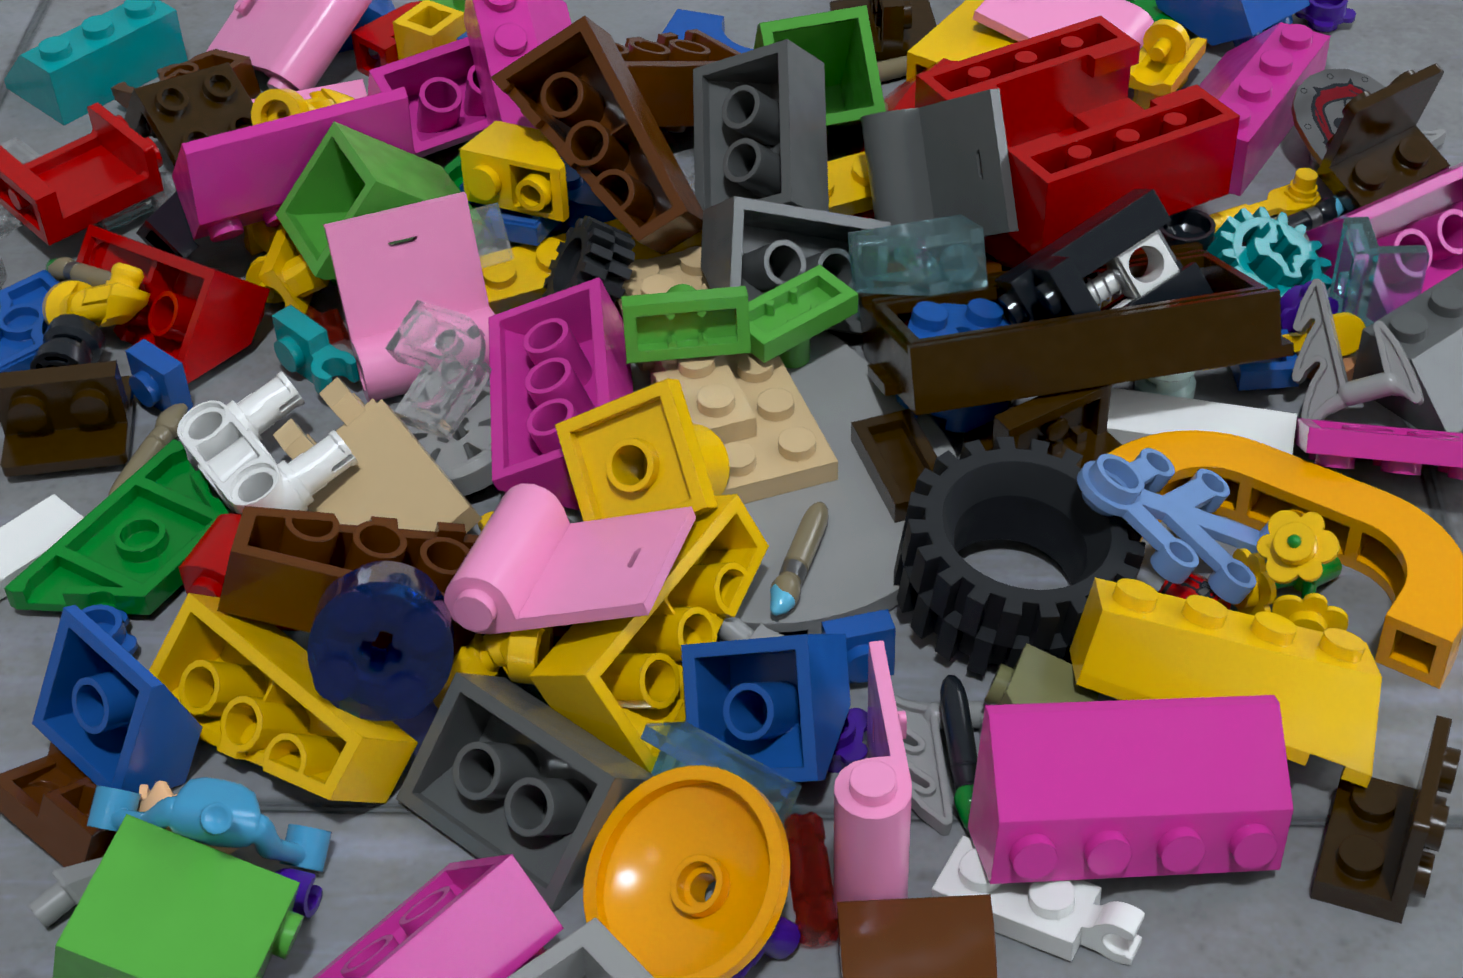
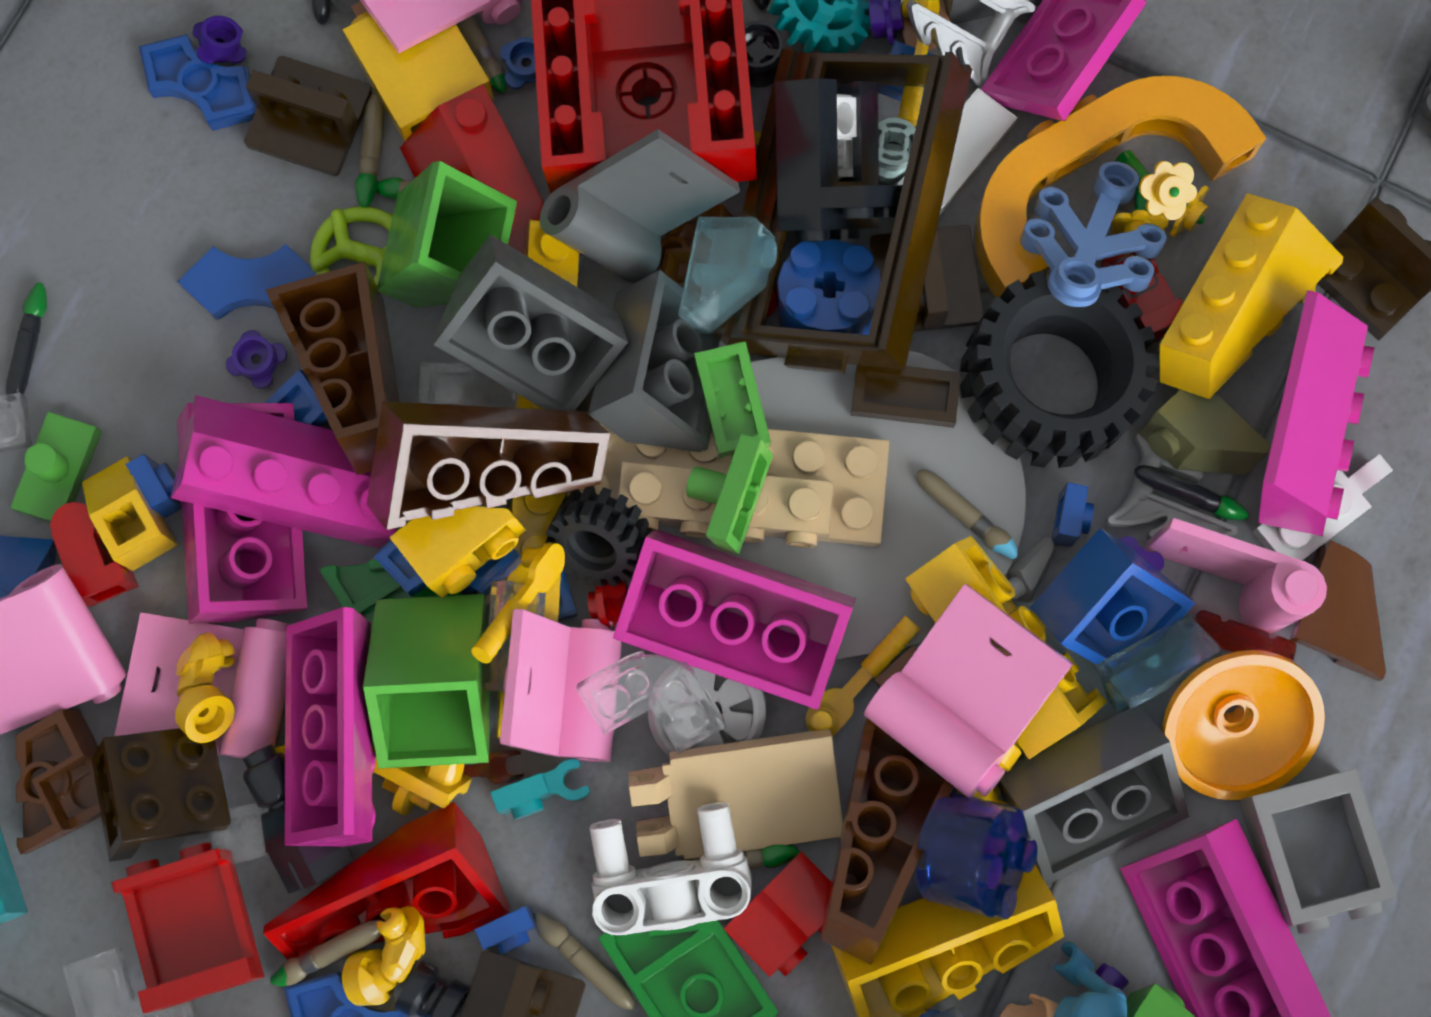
camera: 65 degrees left, 35 degrees up
(521, 235) = (544, 567): none -> yellow piece
(643, 456) = (889, 592): yellow plant -> none

